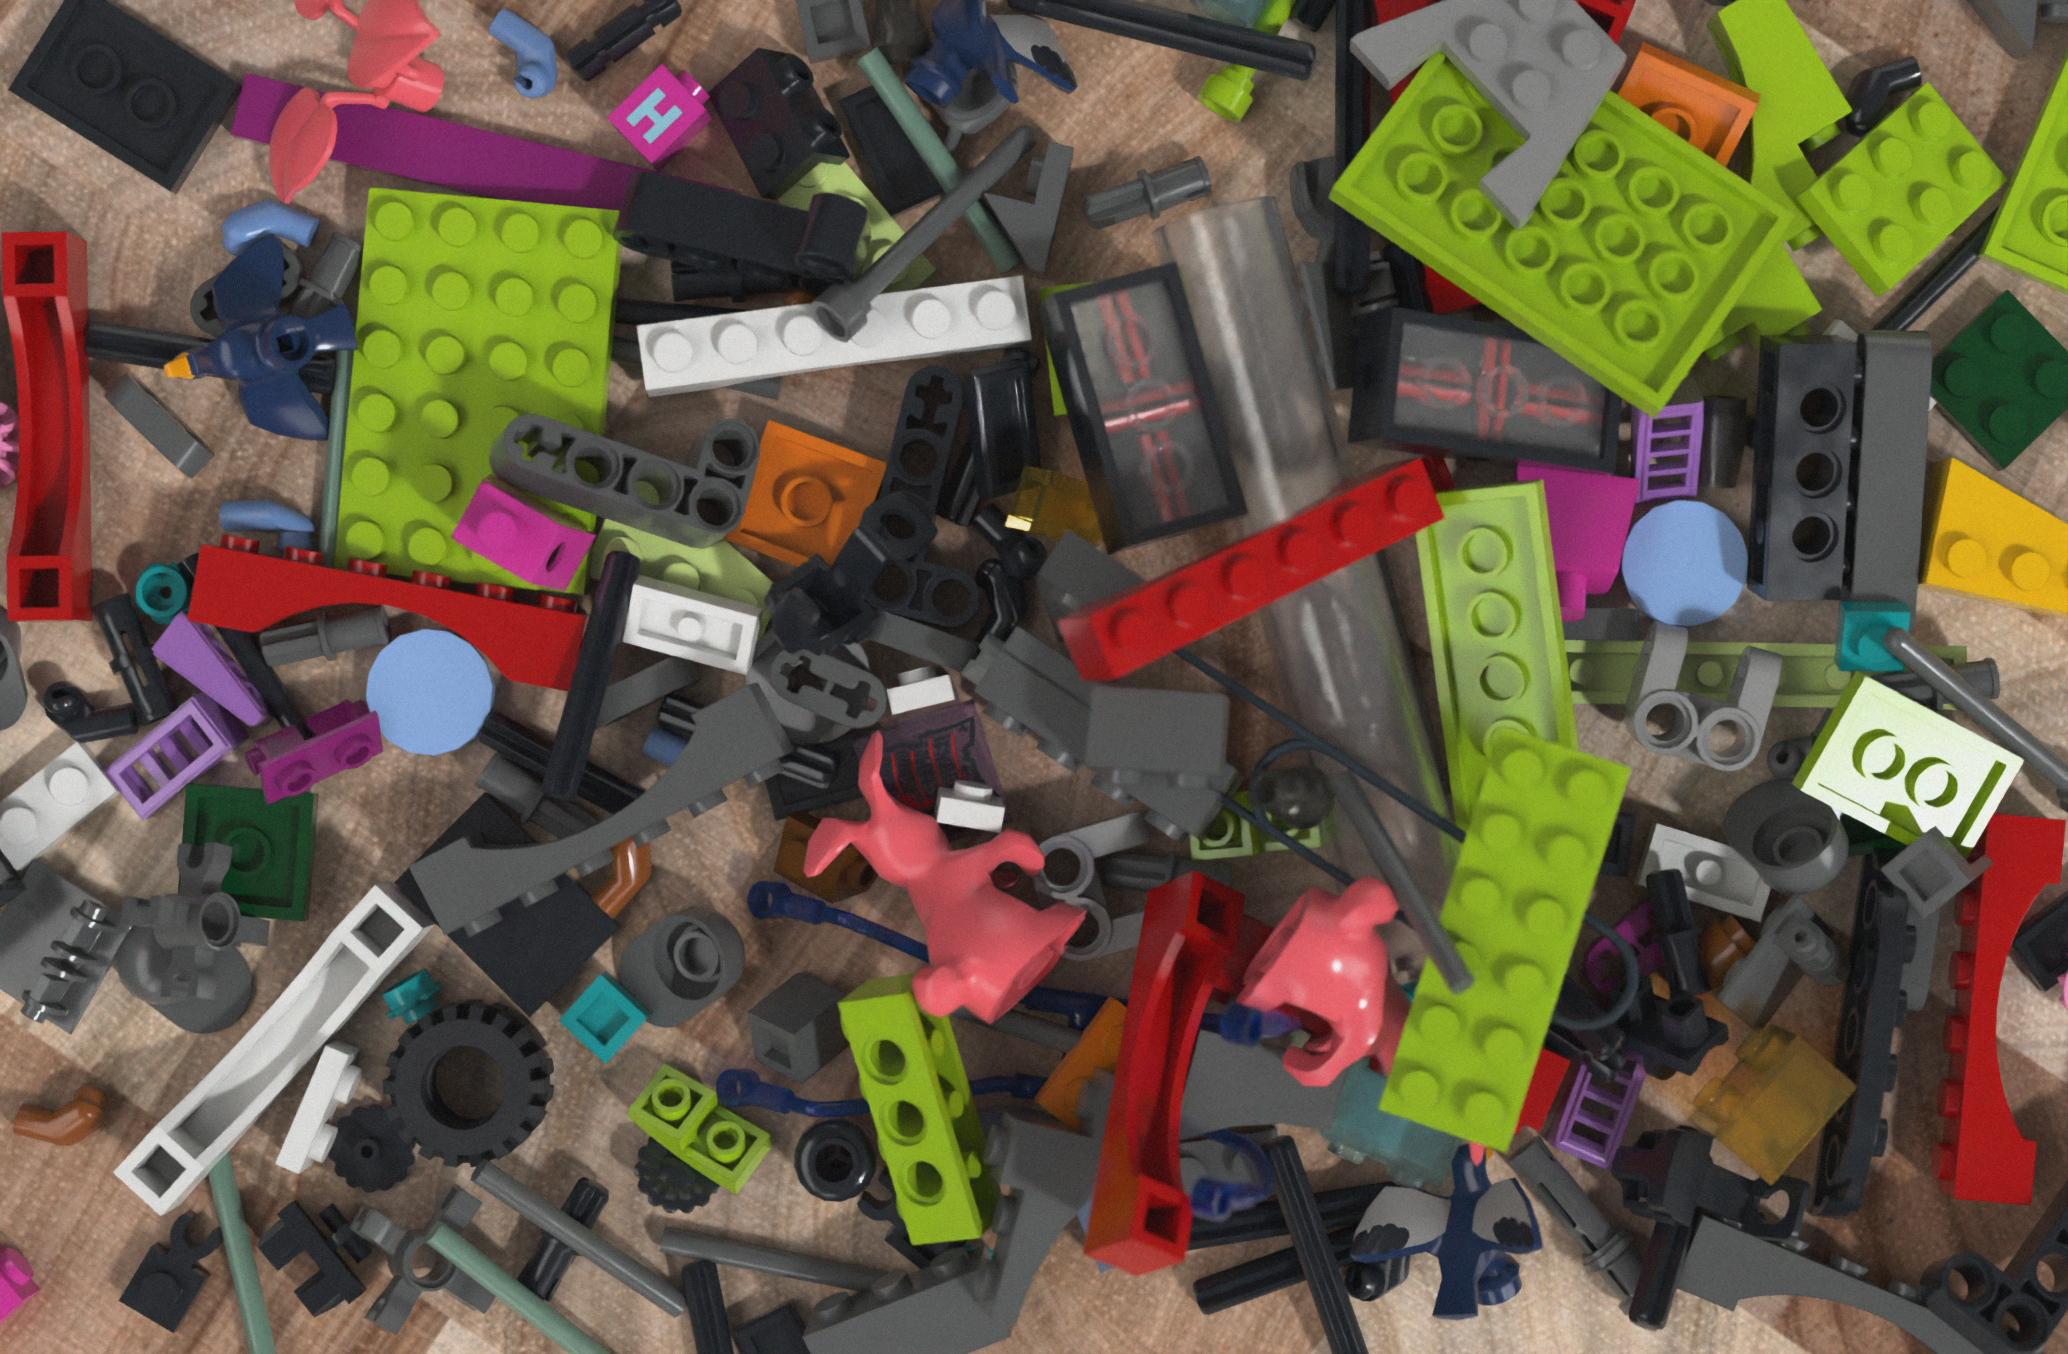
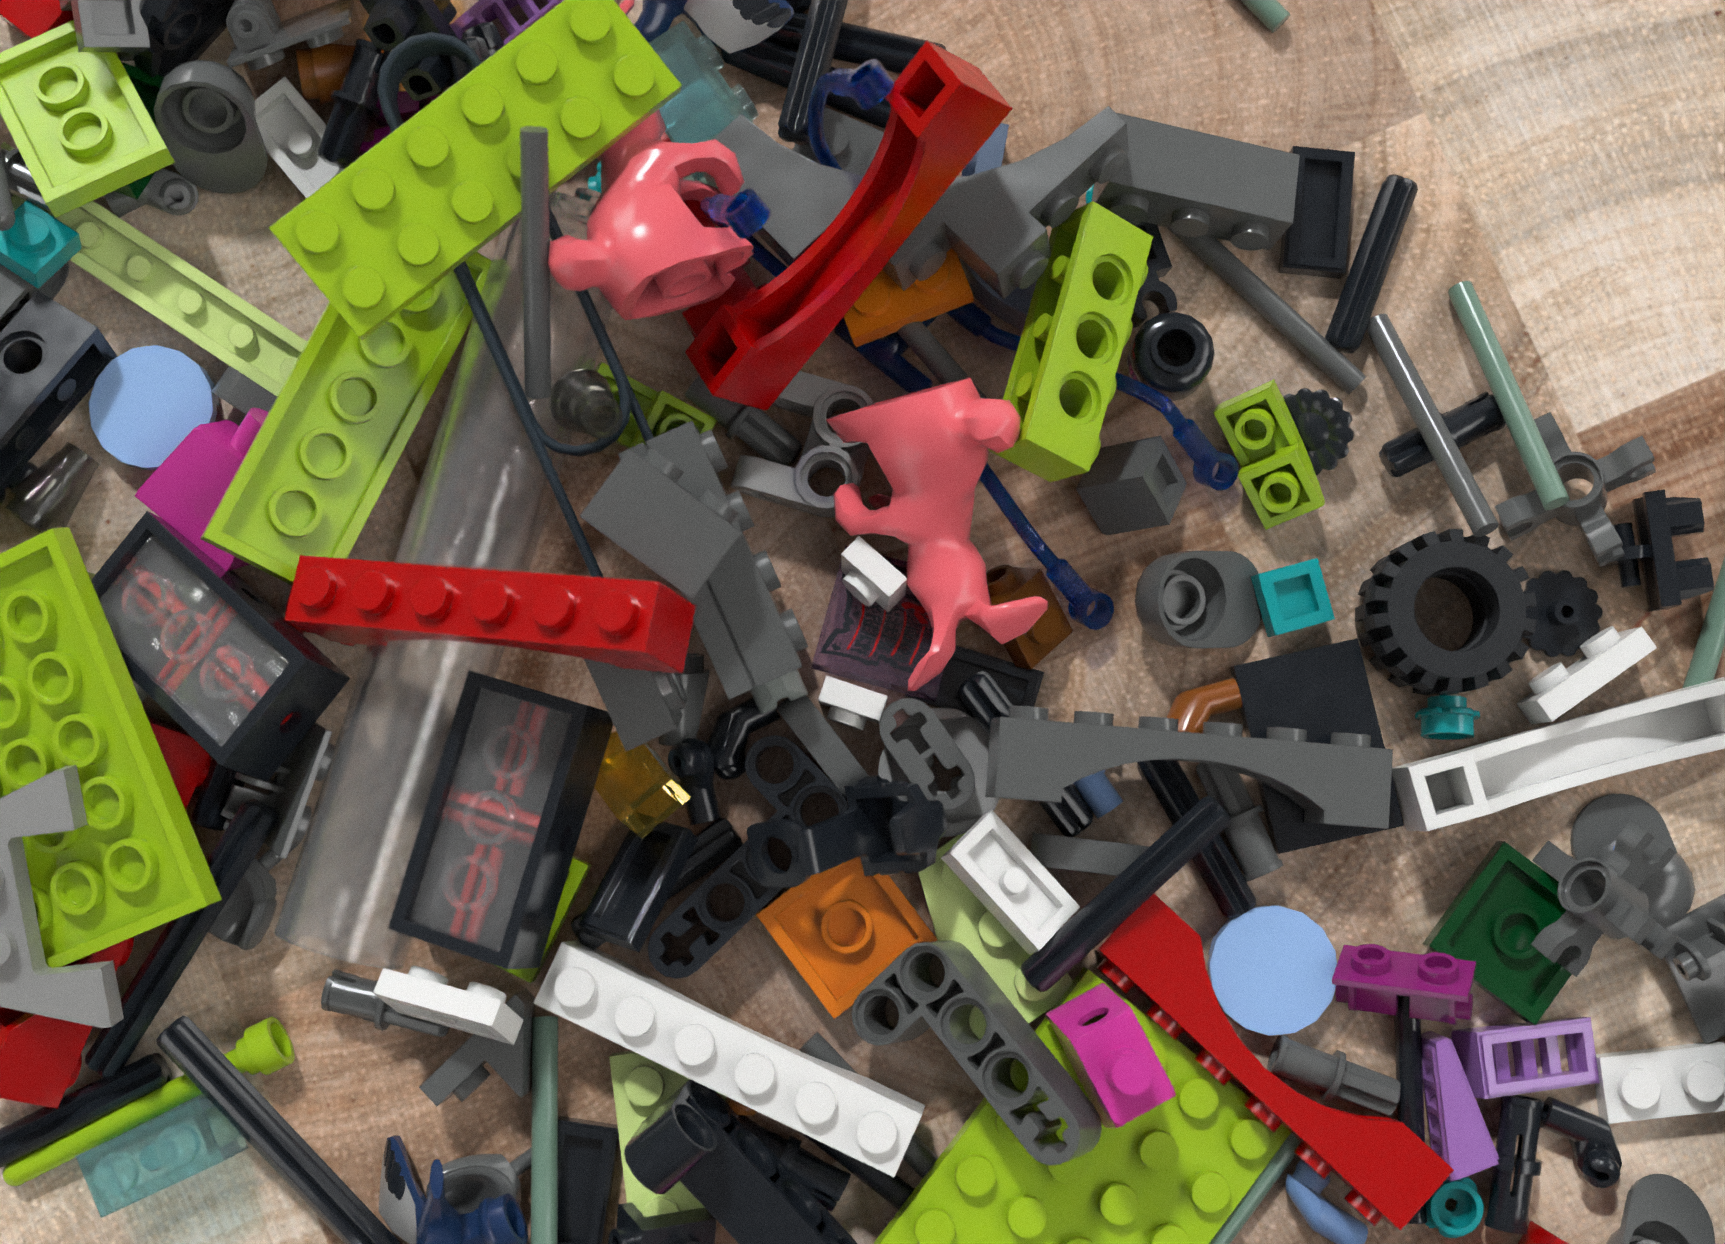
camera: 140 degrees left, 5 degrees down
(844, 308) = (701, 1075): dark grey piece -> none
(1112, 224) = (427, 997): none -> white plate
(1684, 403) = (105, 532): medium lavender slope -> none
(1695, 715) = (171, 252): light grey piece -> none

